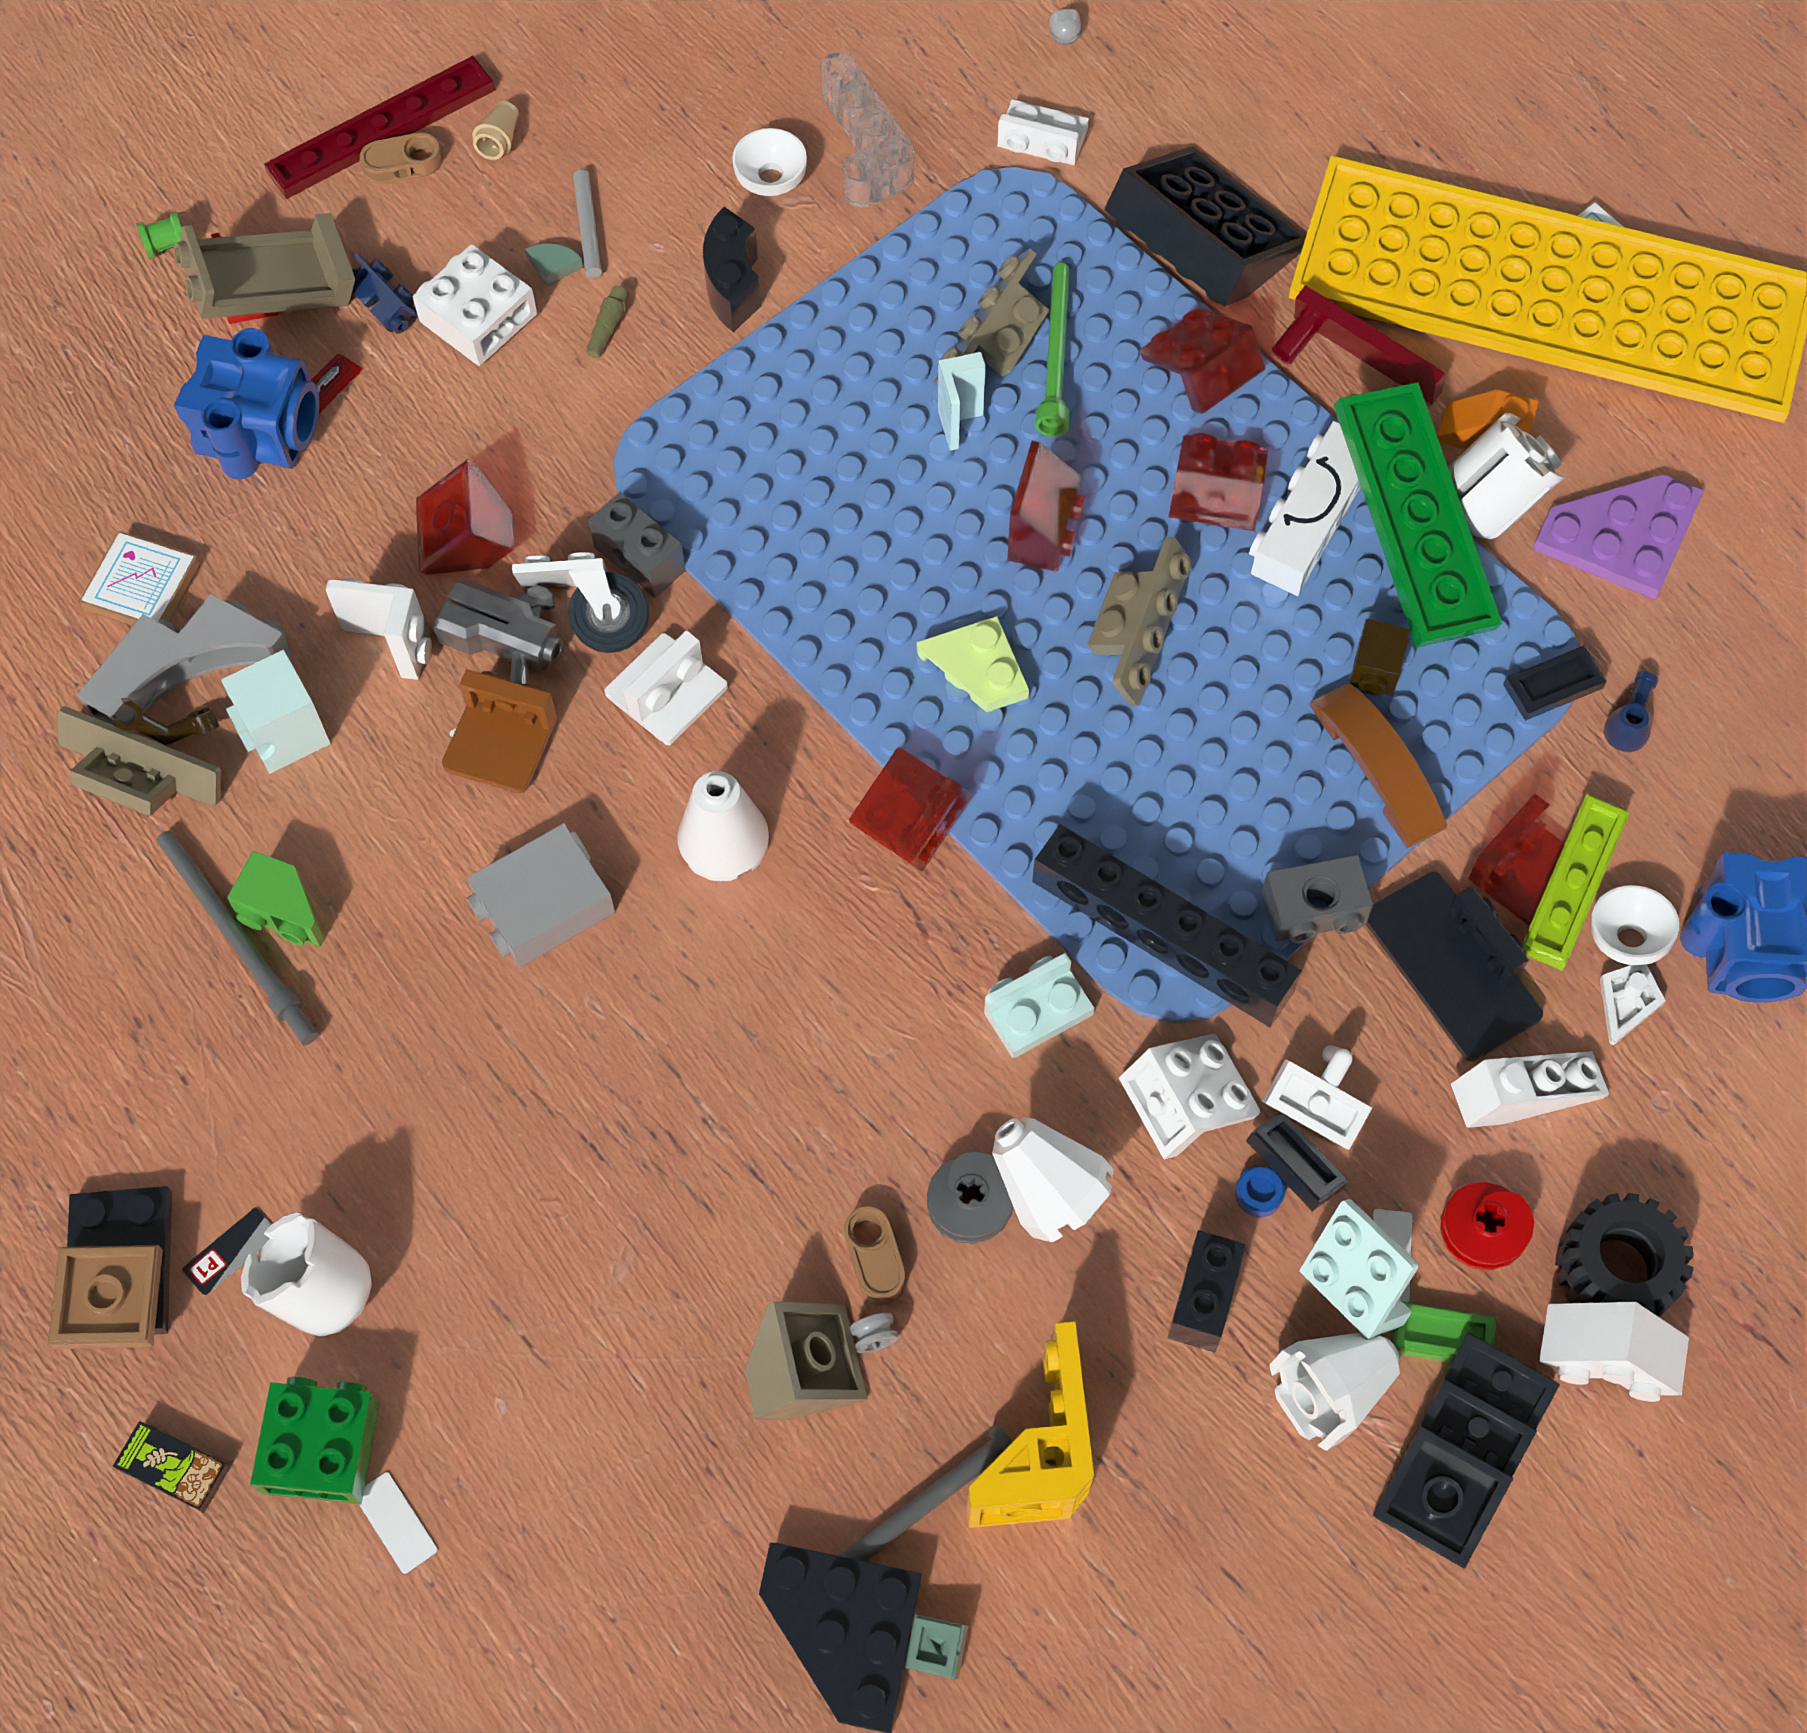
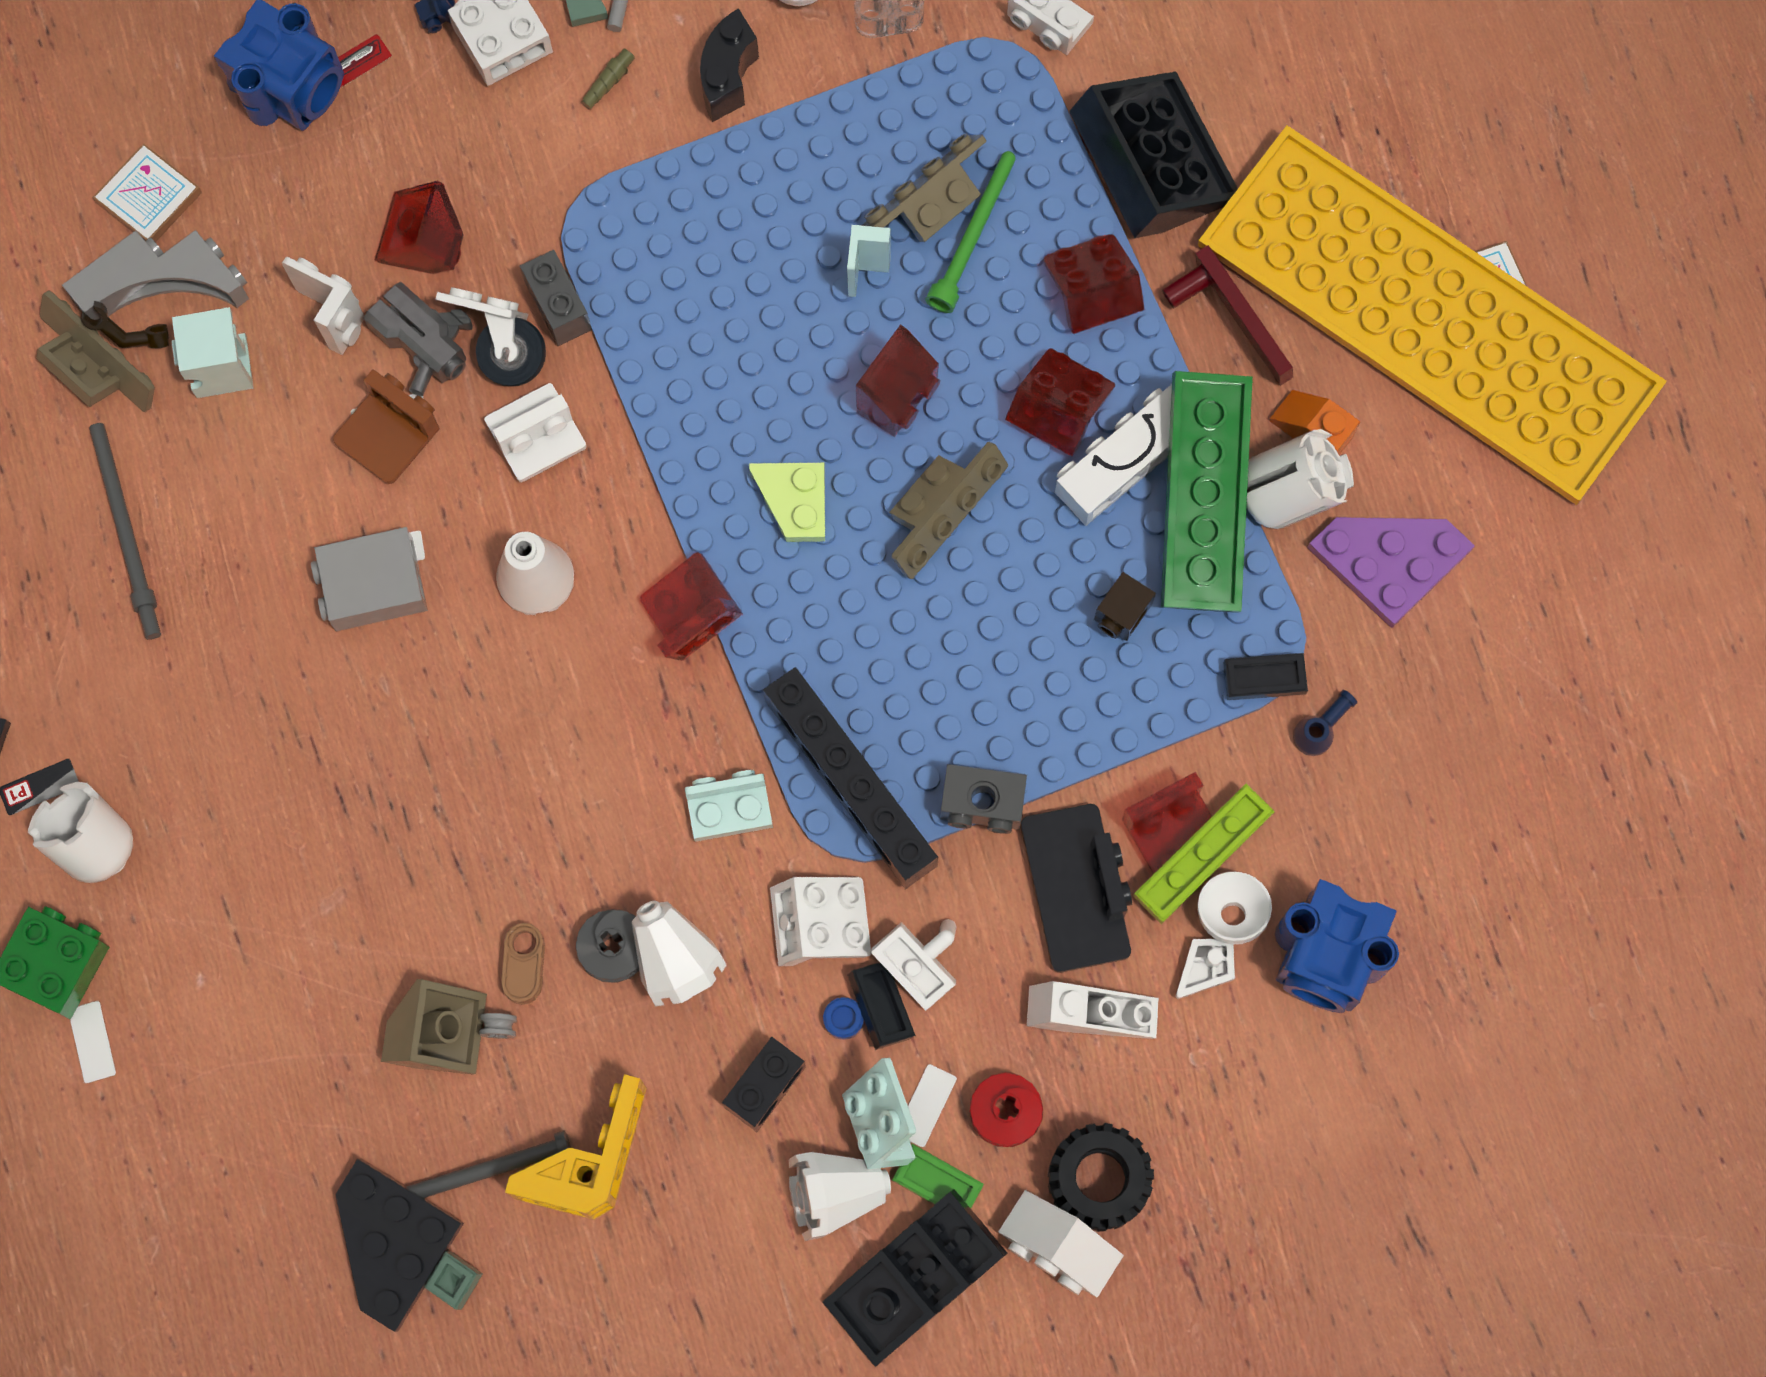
camera: 20 degrees right, 10 degrees up
(274, 897) = (166, 510): bright green slope -> none
(1384, 760) = (1088, 697): dark orange slope -> none

